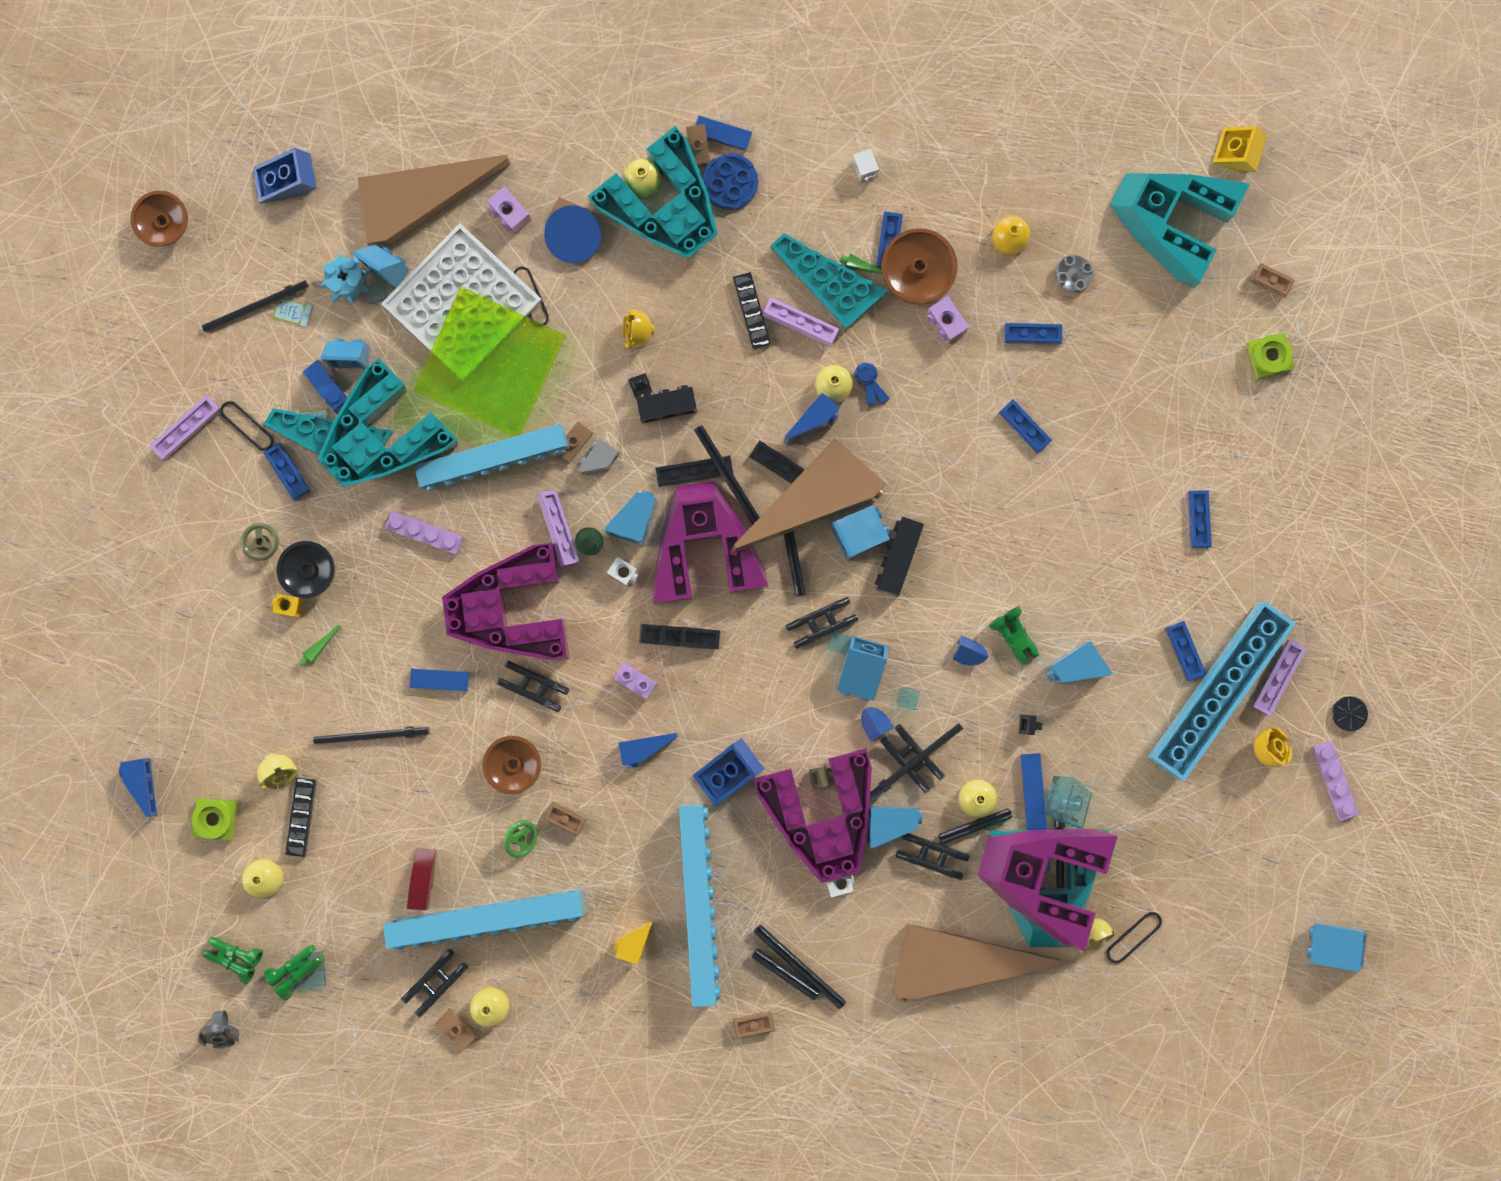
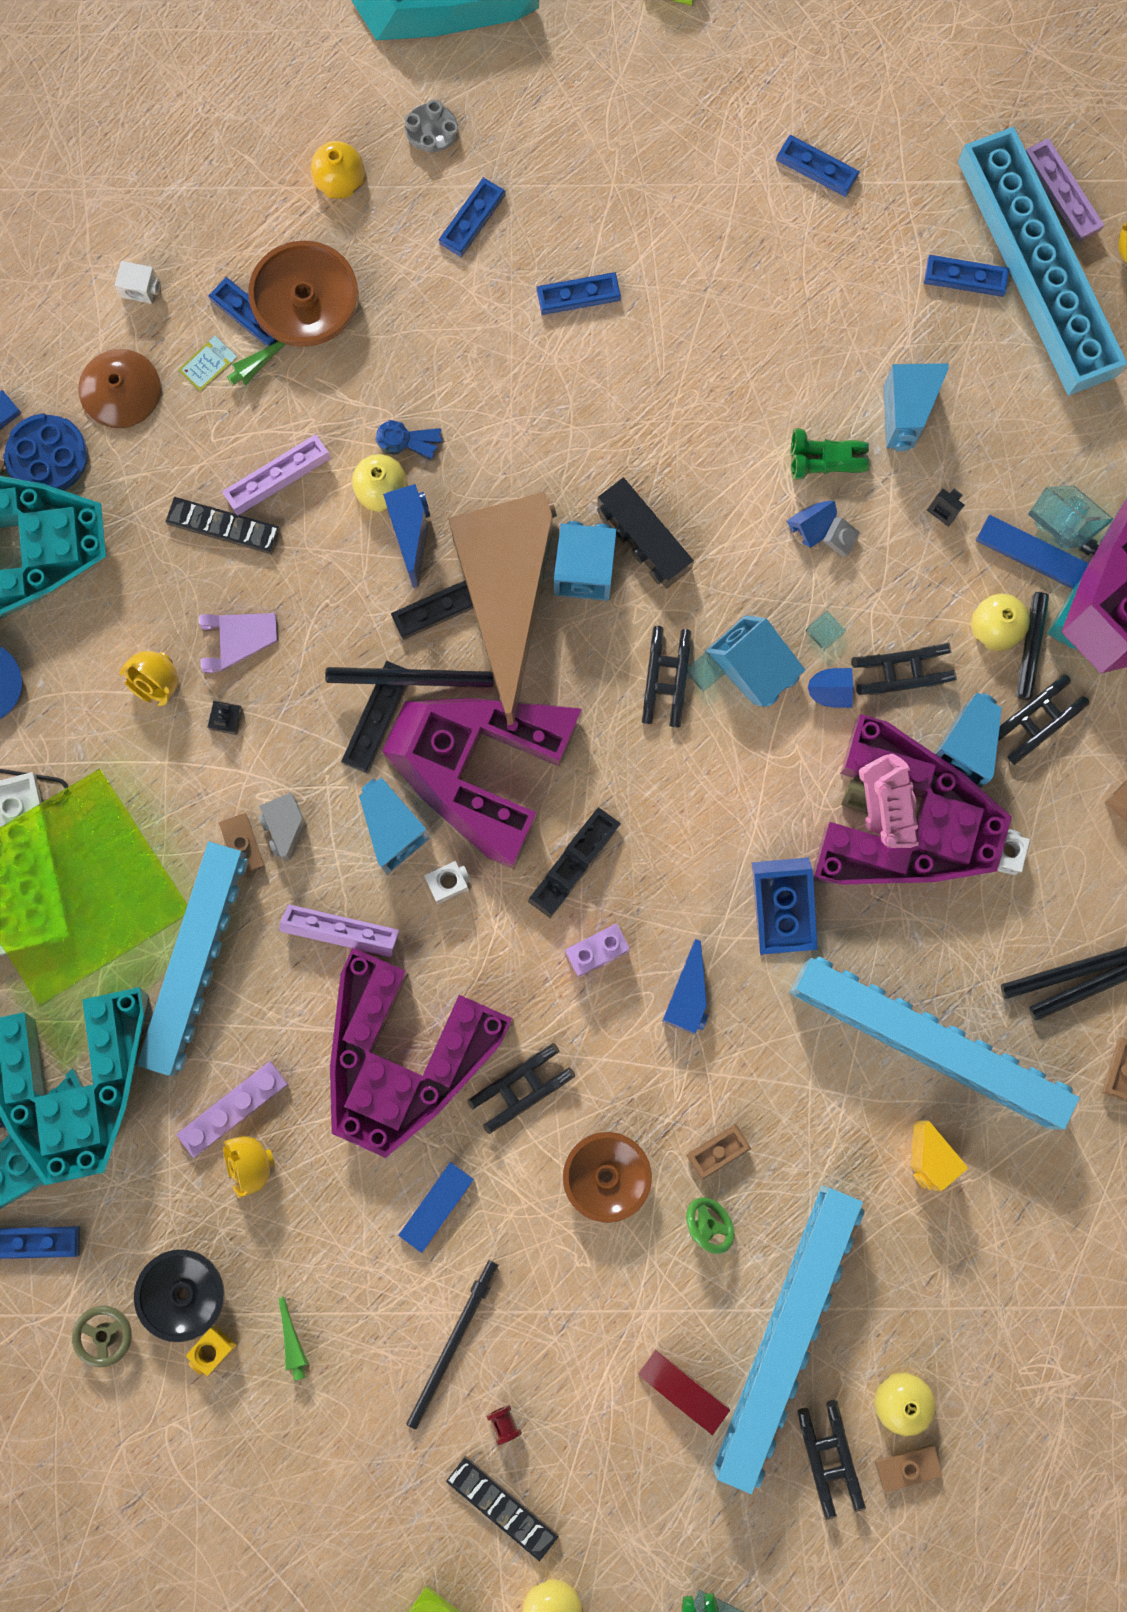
camera: 60 degrees left, 5 degrees down
(275, 771) = (420, 1504): light yellow cylinder -> none
(344, 790) = (503, 1425): none -> dark red bush
(398, 561) = (247, 1164): none -> yellow cylinder
(589, 541) = (381, 900): clear green hair -> none
(666, 404) = (270, 698): black brick -> none
(691, 363) = (239, 637): none -> lavender flag
(793, 208) = (126, 401): none -> dark orange dish
(794, 564) = (573, 665): black axle -> none
(822, 797) = (890, 801): none -> bright pink piece
(834, 285) = (255, 409): teal wing -> none
(844, 237) = (207, 363): none -> clear light blue sticker
(885, 785) = (917, 720): black bar -> none
(943, 309) = (379, 292): lavender brick -> none
(970, 673) = (841, 536): none -> light grey plate

